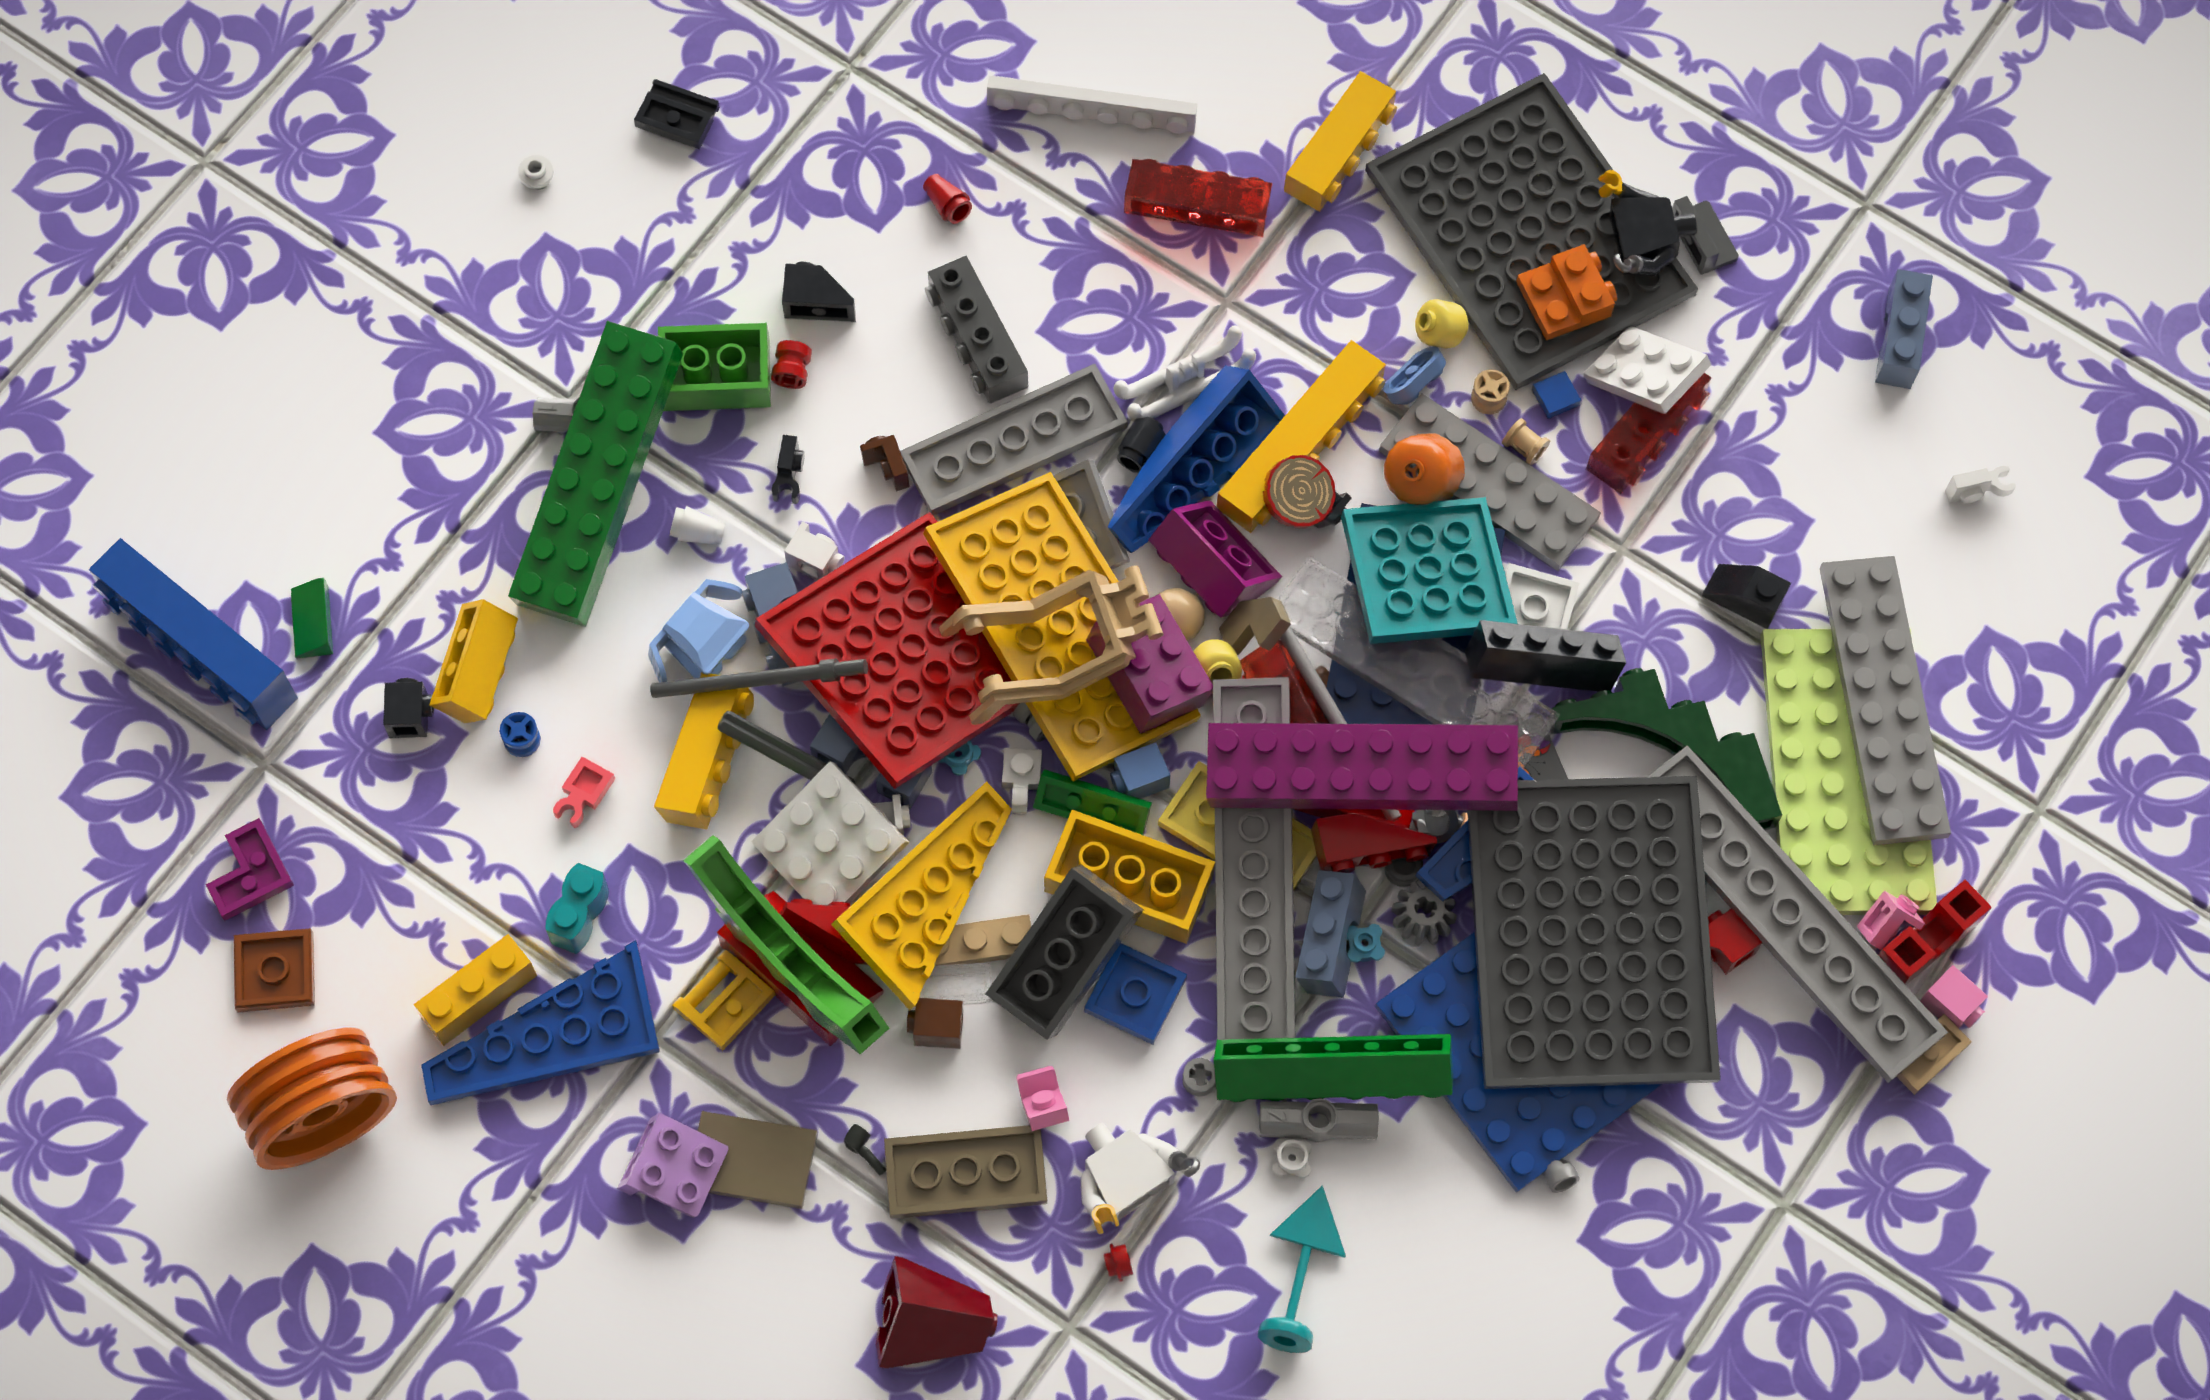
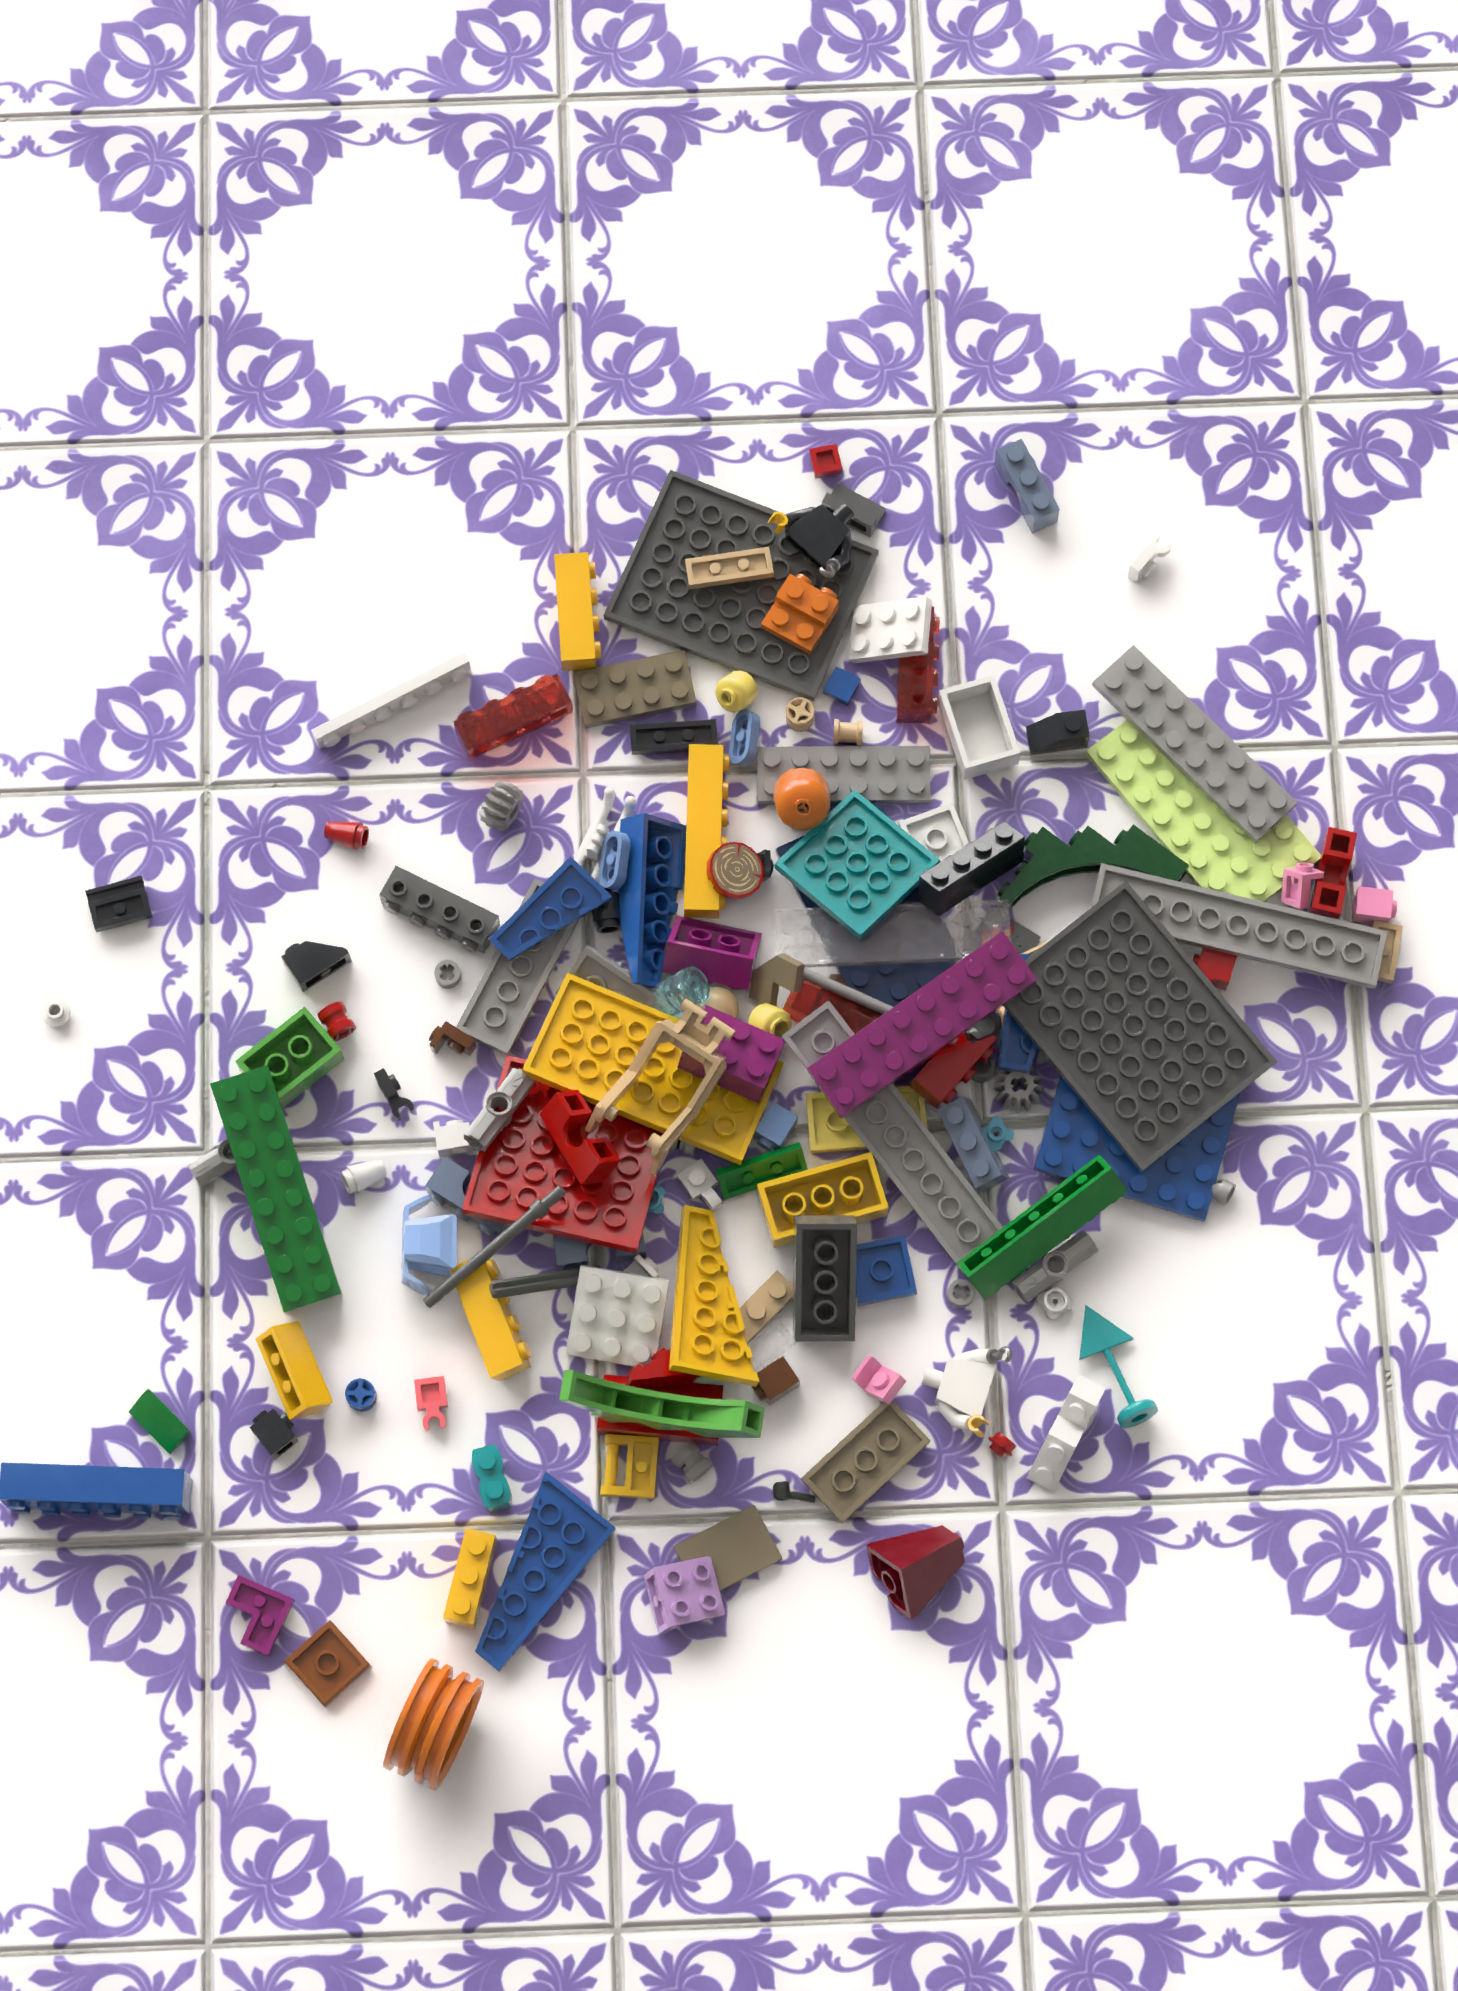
camera: 35 degrees left, 5 degrees up
(788, 1043) = (692, 1462): none -> light grey wheel
(853, 555) = (489, 1122): none -> light grey piece
(920, 658) = (566, 1120): none -> red arch
(946, 403) = (447, 984): none -> light grey bush
(1087, 399) = (555, 905): none -> blue wing
(1117, 271) = (501, 805): none -> light grey gear
(1160, 567) = (673, 990): none -> clear light blue wheel
(1185, 397) = (614, 860): none -> medium blue plate
(1194, 1297) = (1066, 1433): none -> white arch
(1341, 324) = (671, 736): none -> black plate
(1342, 256) = (634, 689): none -> dark tan plate
(1528, 200) = (729, 568): none -> tan plate
(1665, 526) = (978, 727): none -> white piece
(1711, 169) = (825, 461): none -> red plate

